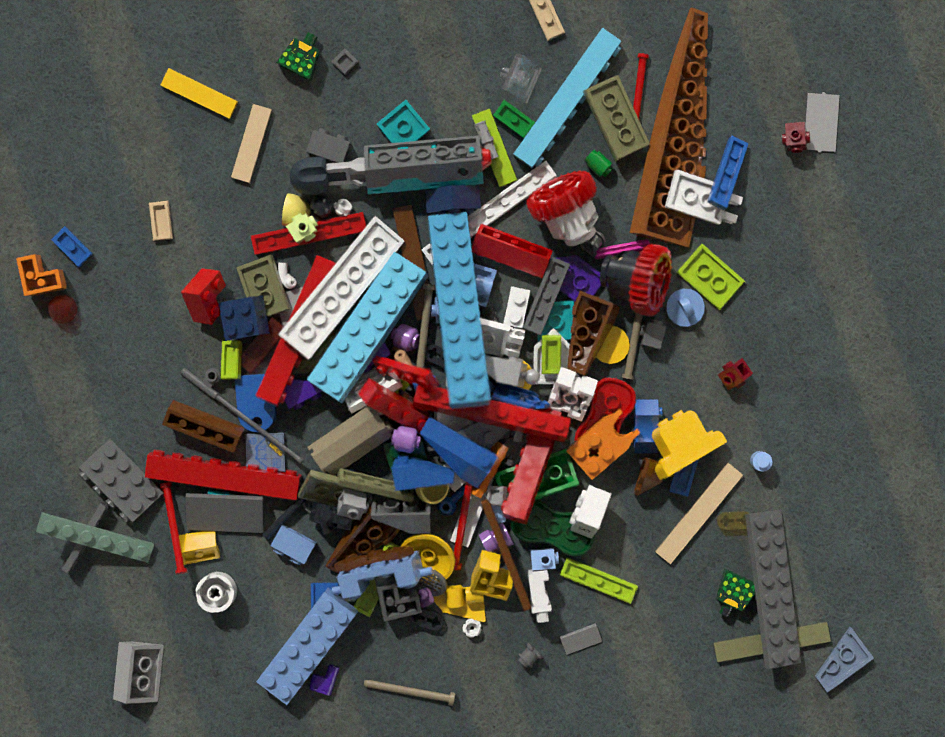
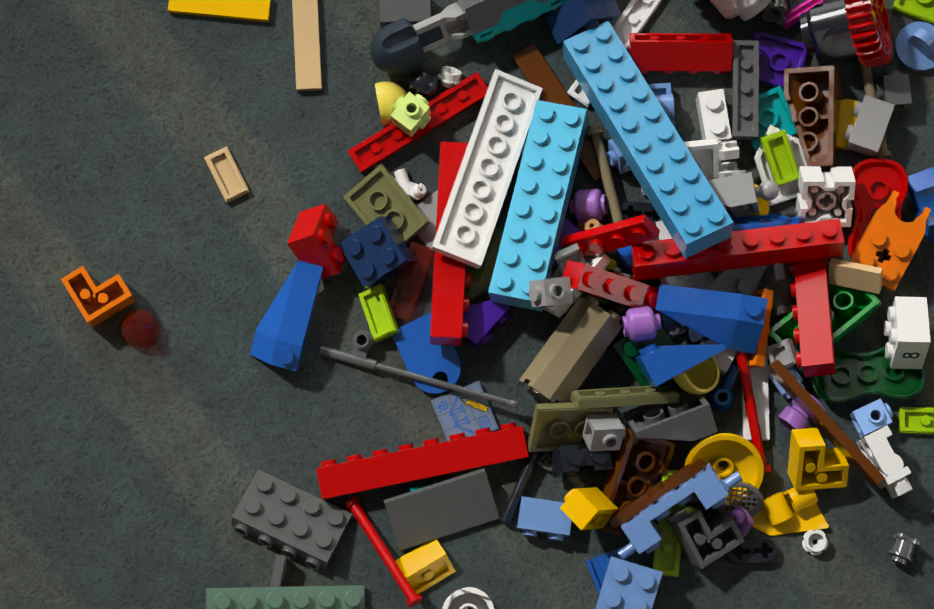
camera: 15 degrees left, 10 degrees down
(71, 246) = (125, 245): blue plate -> none
(163, 345) = (286, 325): none -> blue wedge
(203, 426) = (374, 407): reddish brown brick -> none
(321, 552) = (588, 508): none -> yellow brick
(347, 397) = (550, 291): none -> light grey brick
(374, 373) = (570, 253): none -> dark grey tile
(568, 459) = (855, 275): none -> tan tile
(623, 354) = (869, 126): none -> light grey brick

